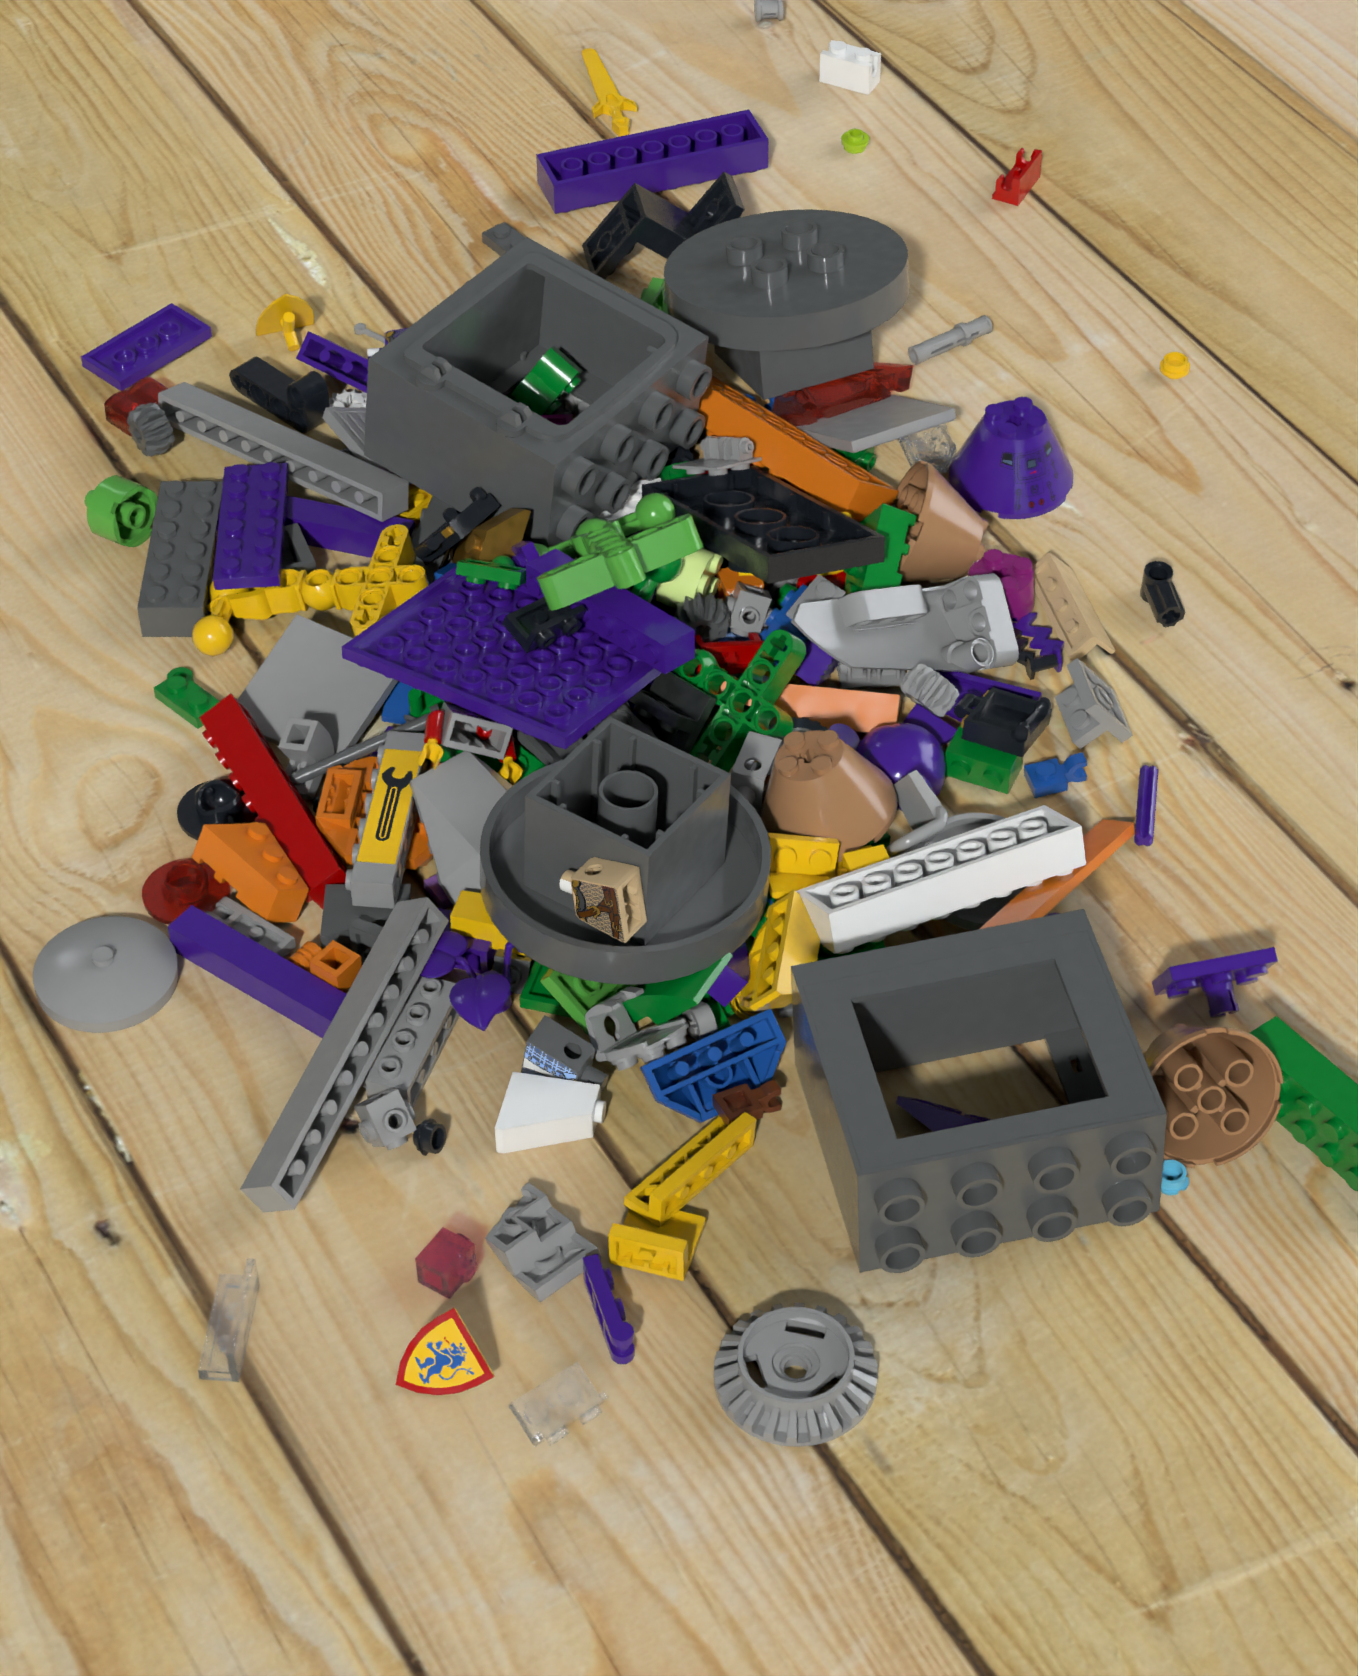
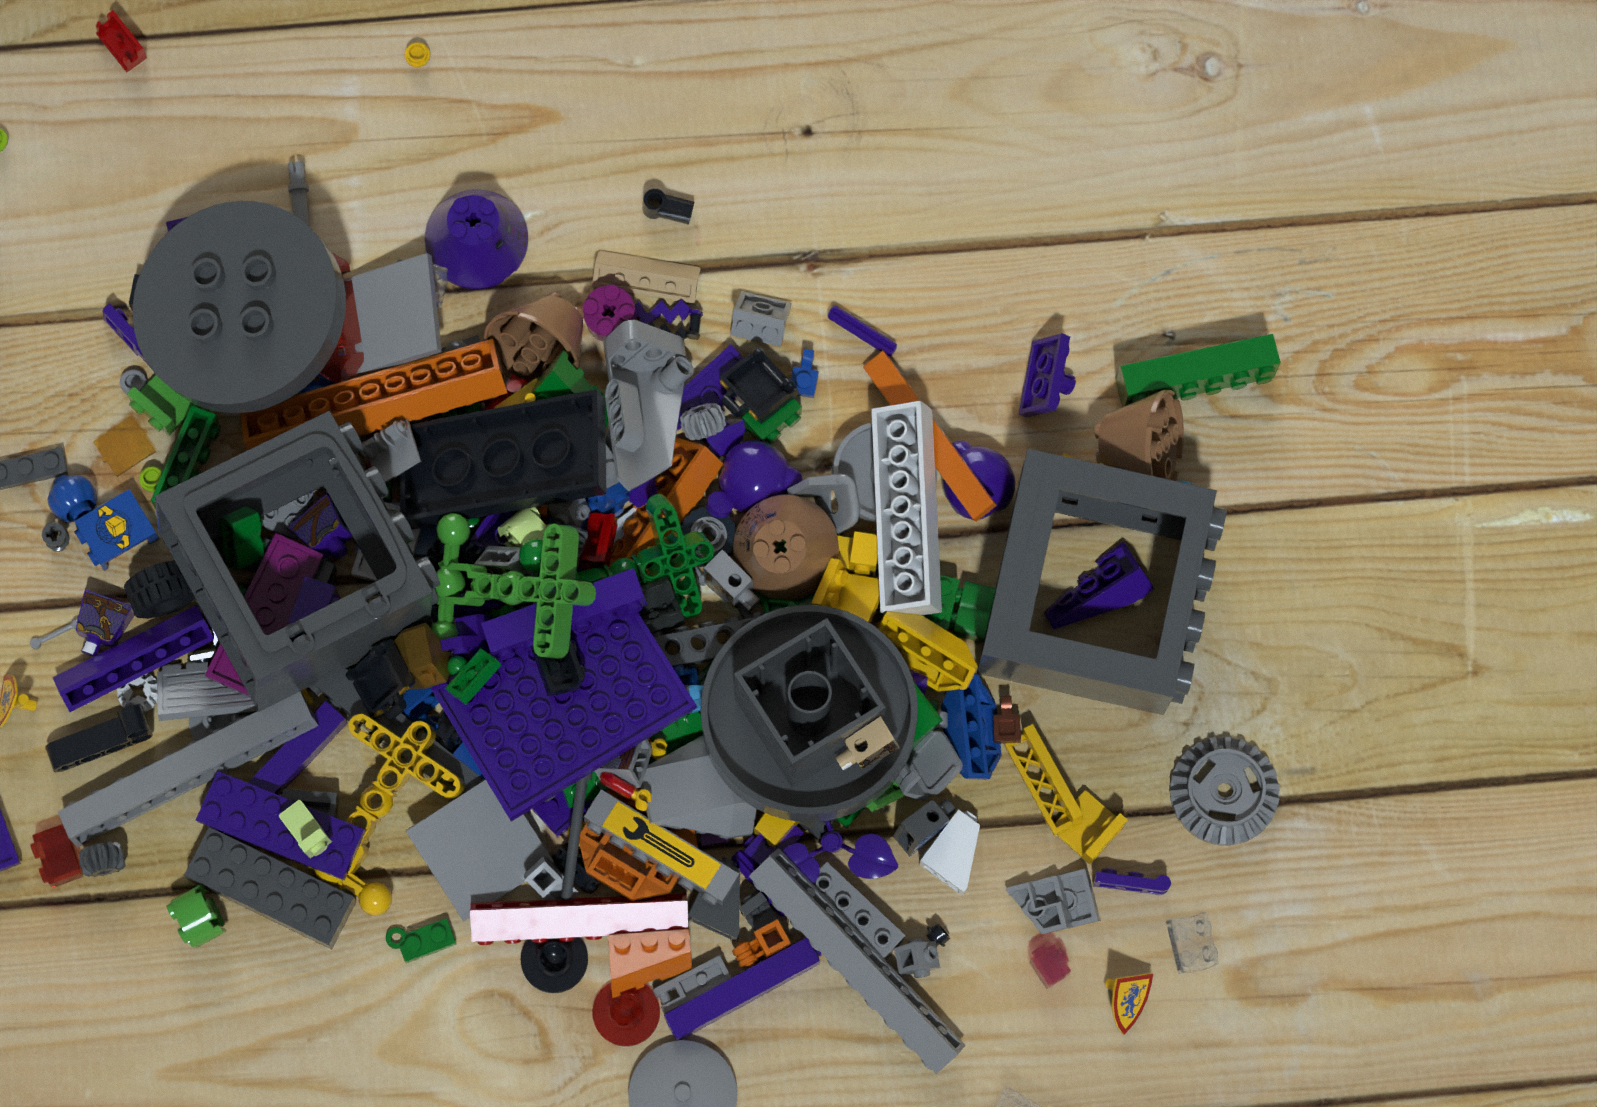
camera: 70 degrees left, 30 degrees up
(244, 527) = (305, 829): none -> yellowish green bracket
(657, 223) = (60, 355): black bracket -> none

